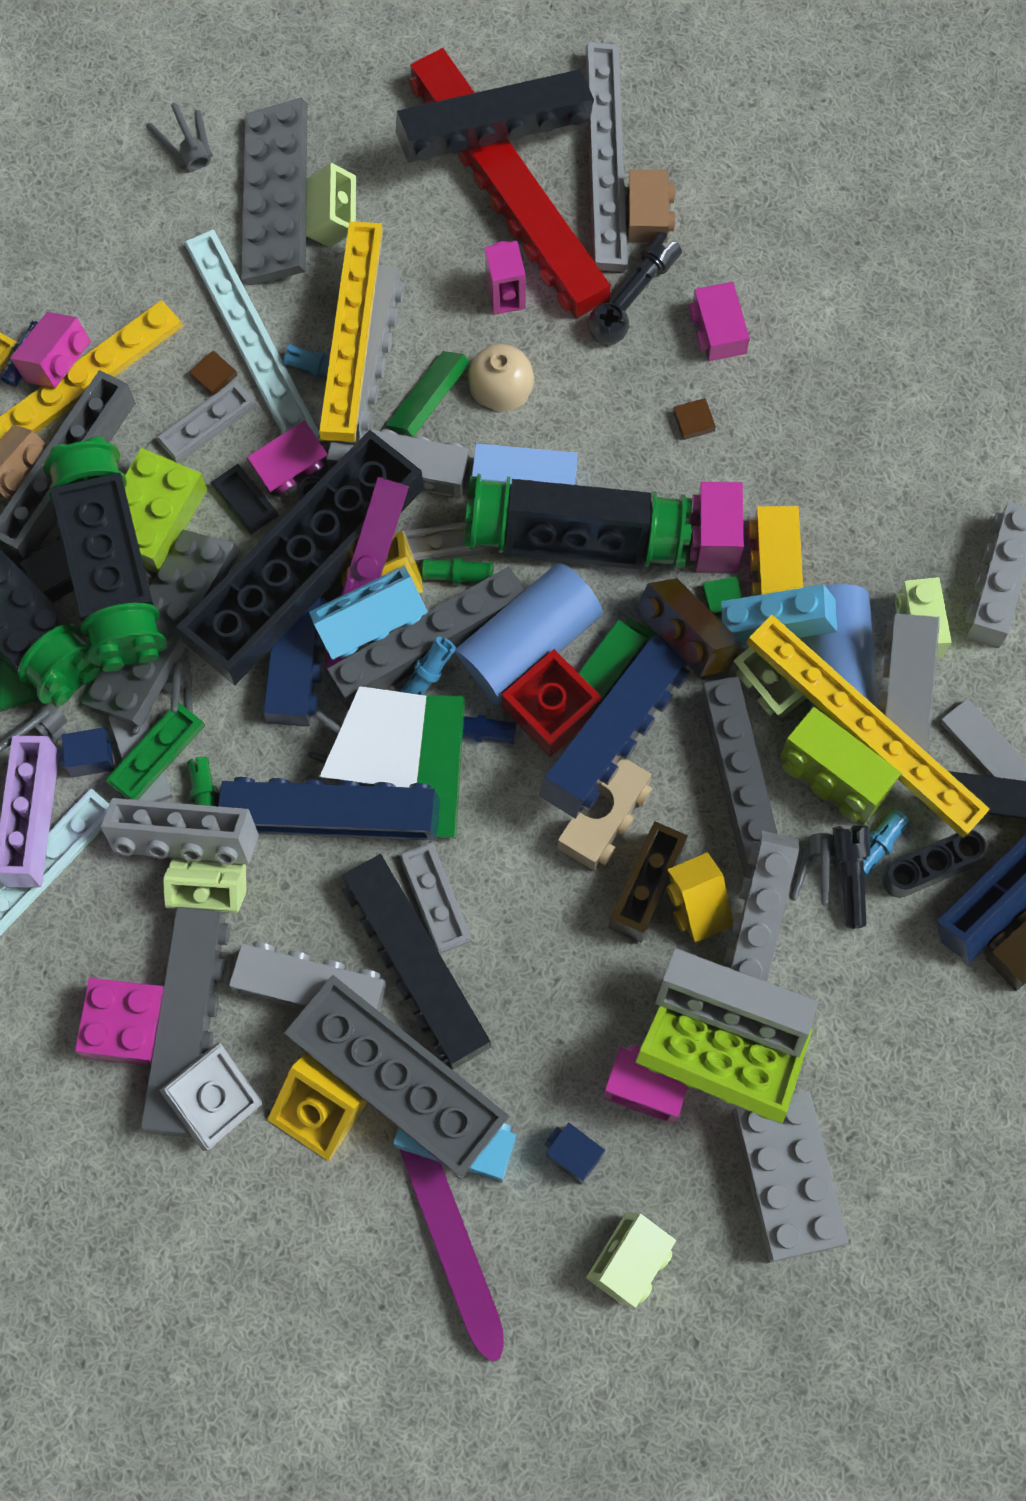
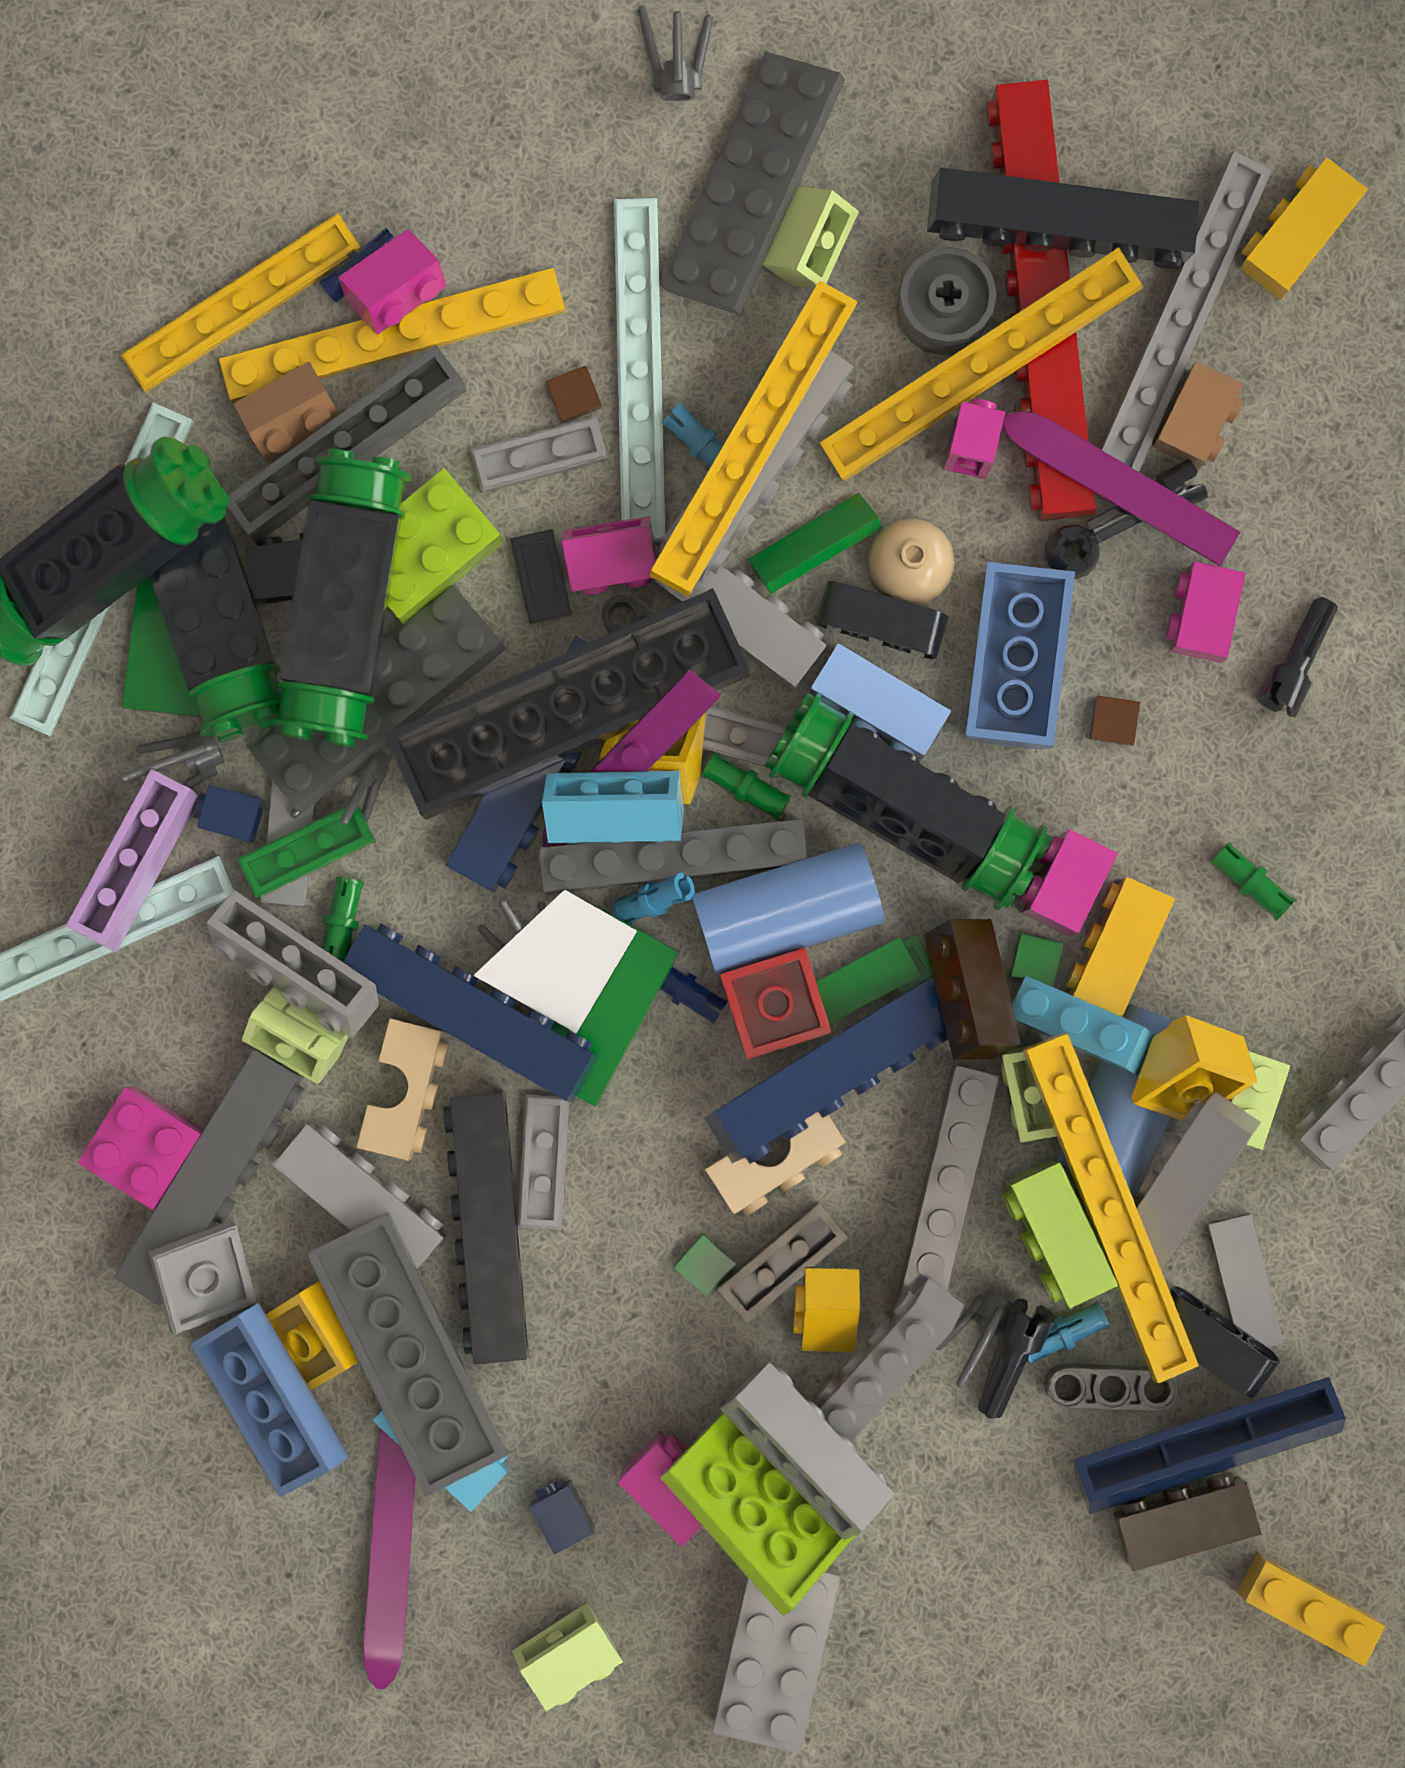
camera: 25 degrees right, 15 degrees up
(305, 1169) = (269, 1400): none -> medium blue brick
(310, 921) = (399, 1129): none -> tan arch
(442, 205) = (952, 276): none -> dark grey wheel
(485, 229) = (982, 364): none -> yellow plate
(499, 420) = (882, 617): none -> black beam
(591, 917) = (704, 1265): none -> green tile
(608, 401) = (1020, 656): none -> medium blue brick
(620, 262) = (1121, 485): none -> magenta piece
(655, 69) = (1301, 227): none -> yellow brick
(799, 339) = (1289, 681): none -> black piece
(845, 477) = (1253, 881): none -> green pin
(866, 603) = (1191, 1064): none -> yellow slope

